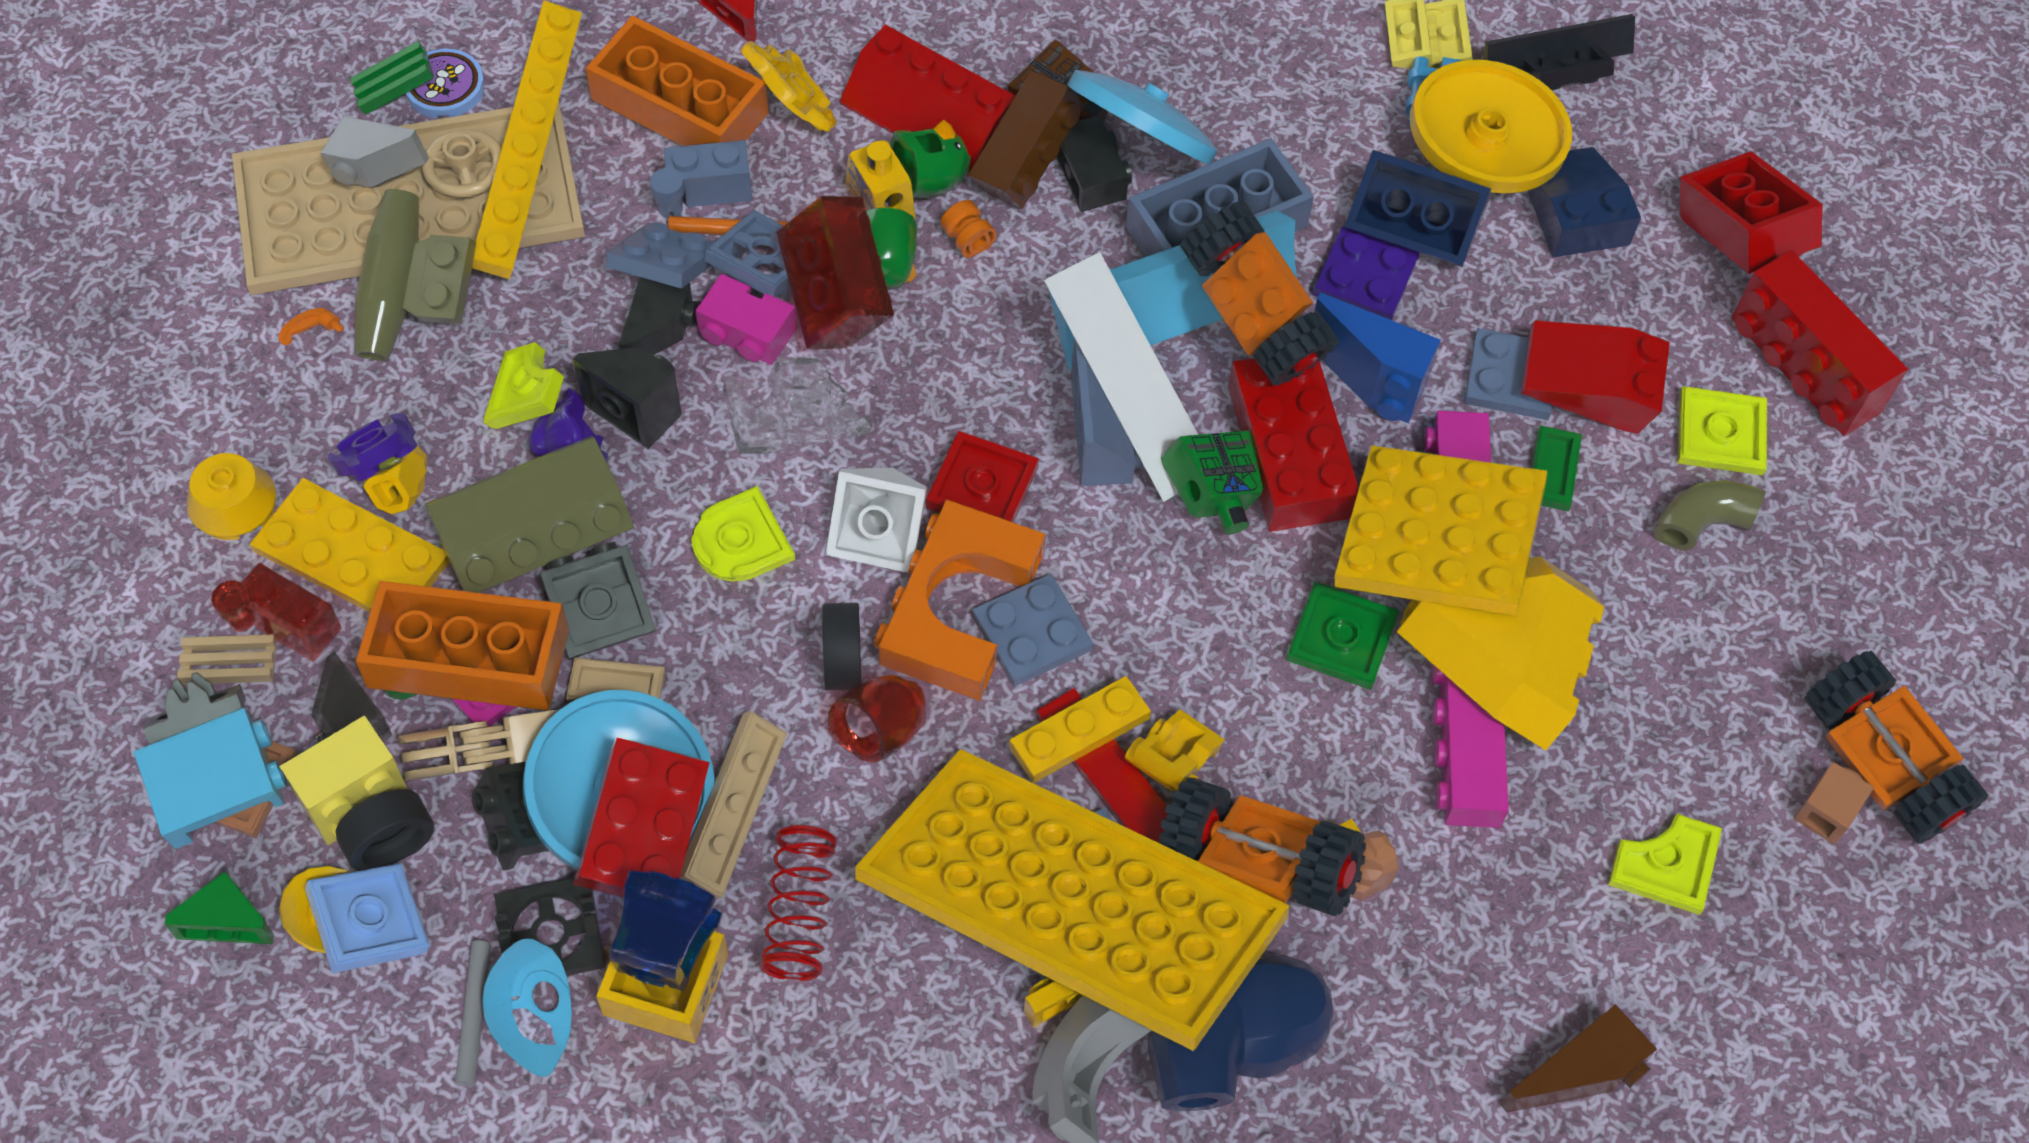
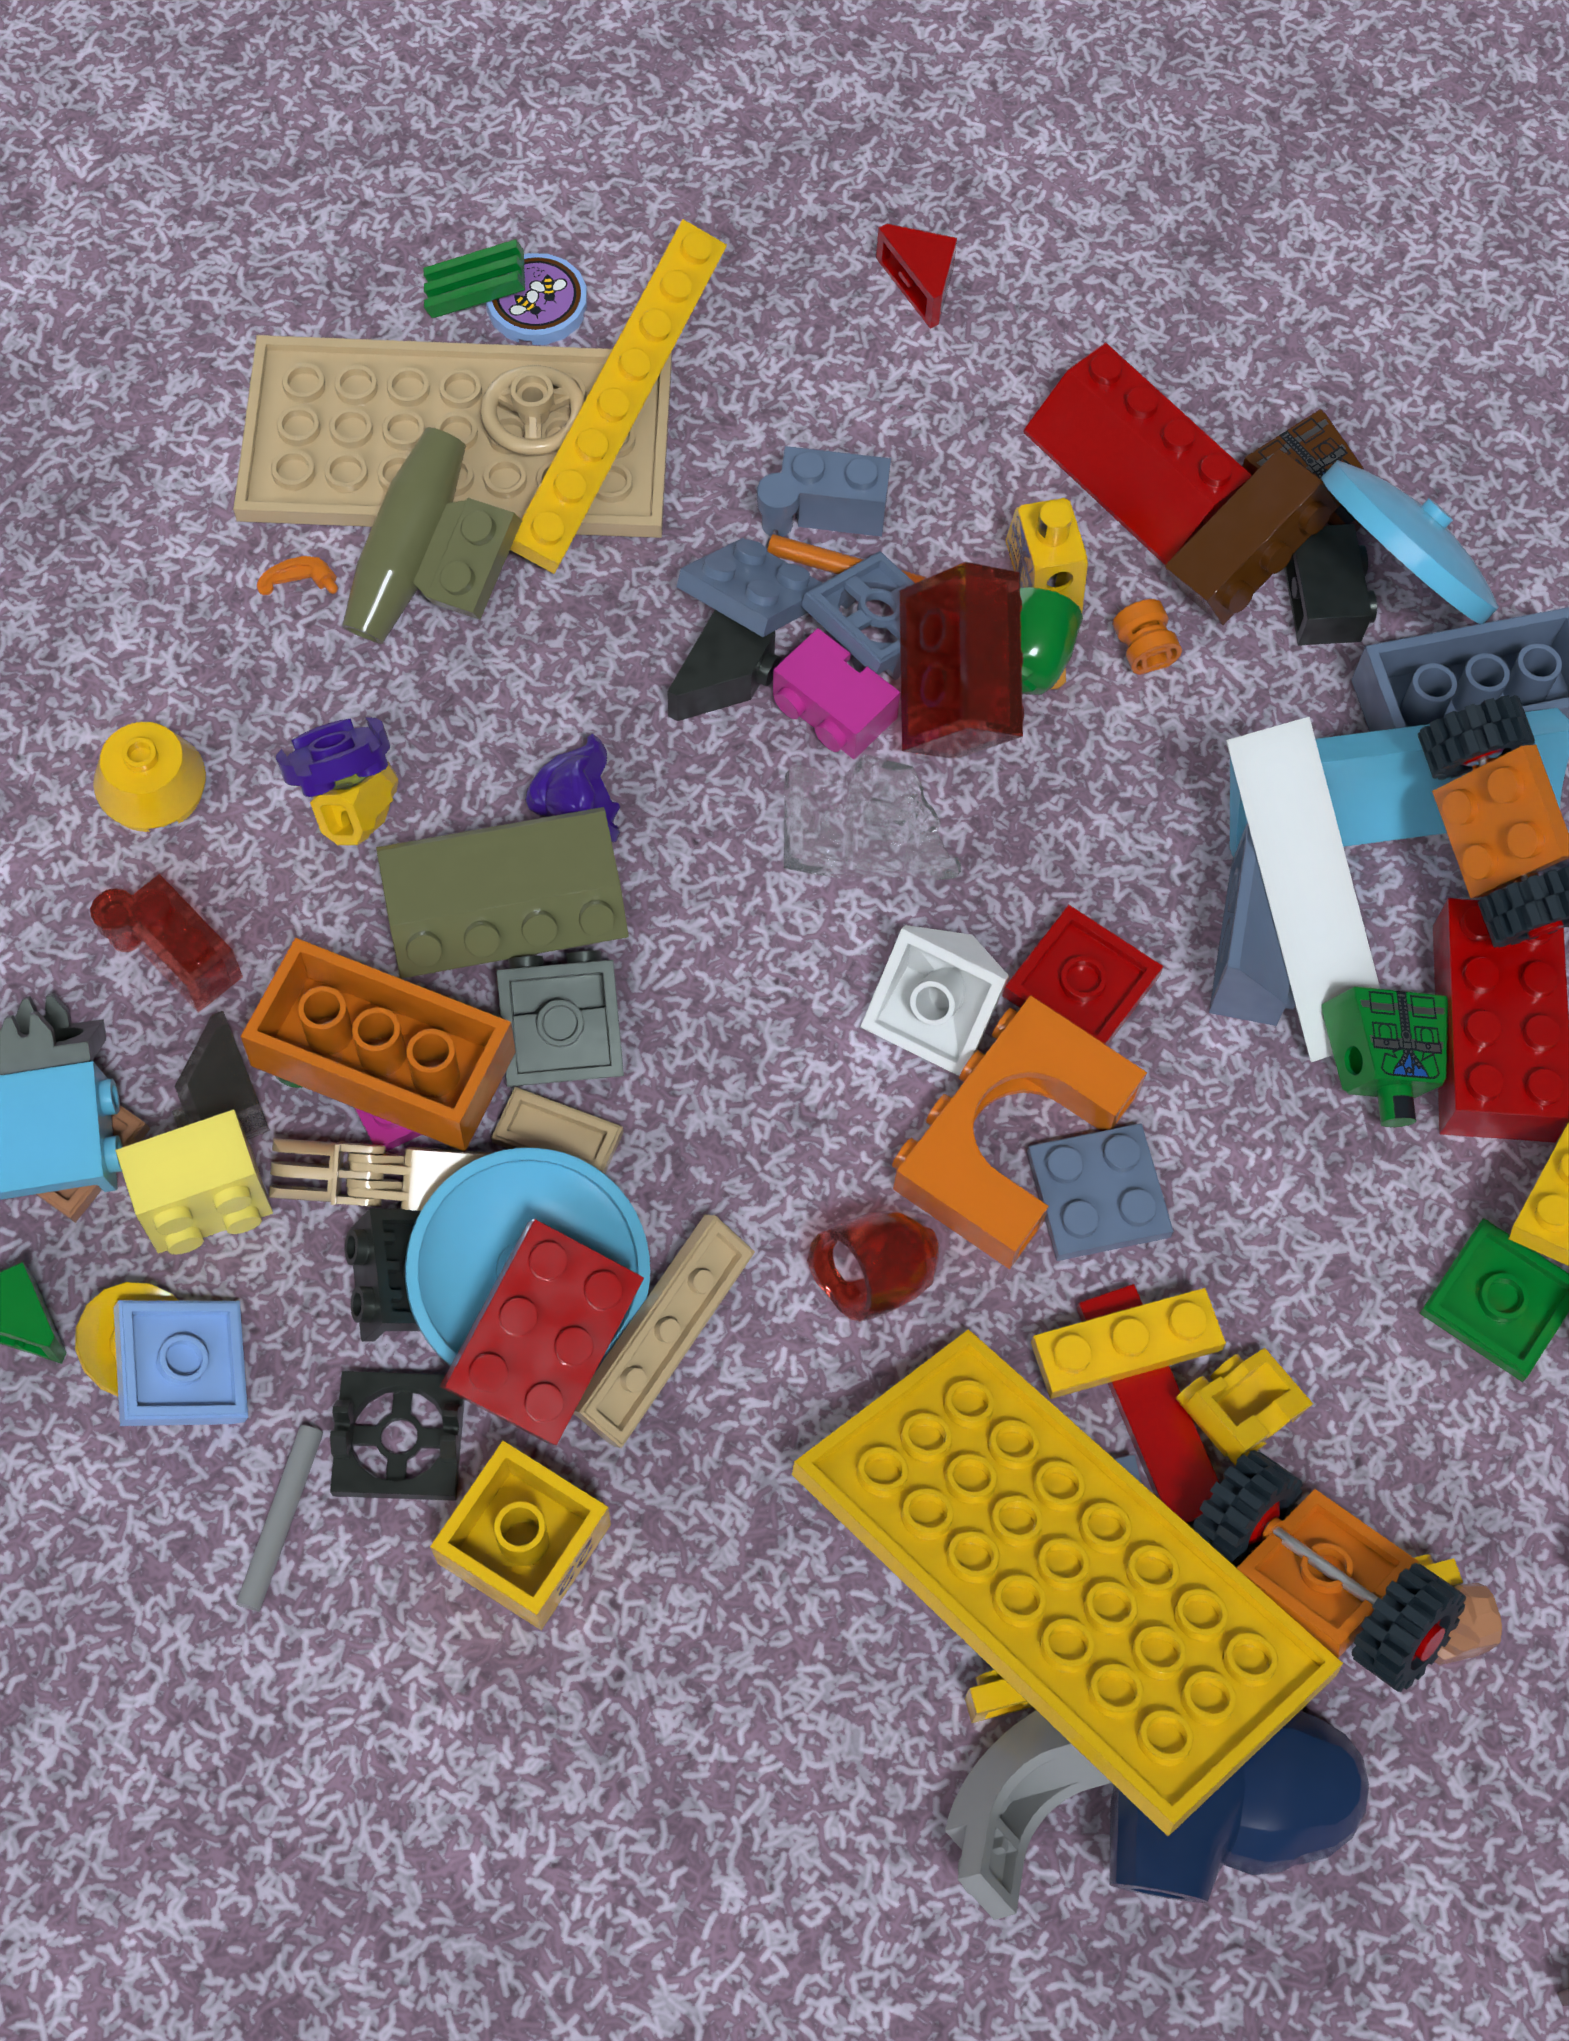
camera: 15 degrees right, 5 degrees up
(228, 643) = (104, 964): tan tile -> none
(344, 546) = (273, 875): yellow plate -> none
(371, 152) = (423, 372): light grey slope -> none
(384, 829) = (227, 1257): black tyre -> none
(516, 975) = (346, 1485): medium azure piece -> none
(522, 388) = (536, 720): neon yellow tile -> none
(630, 391) = (667, 757): pearl dark grey slope -> none
(662, 928) = (530, 1488): clear blue piece -> none
(675, 87) = (821, 369): orange brick -> none
(740, 538) = (758, 979): neon yellow tile -> none
(791, 84) = (967, 395): yellow tile -> none
(821, 851) = (664, 1555): red piece -> none
(841, 645) = (849, 1158): black tyre -> none
(932, 159) = (1122, 535): green piece -> none

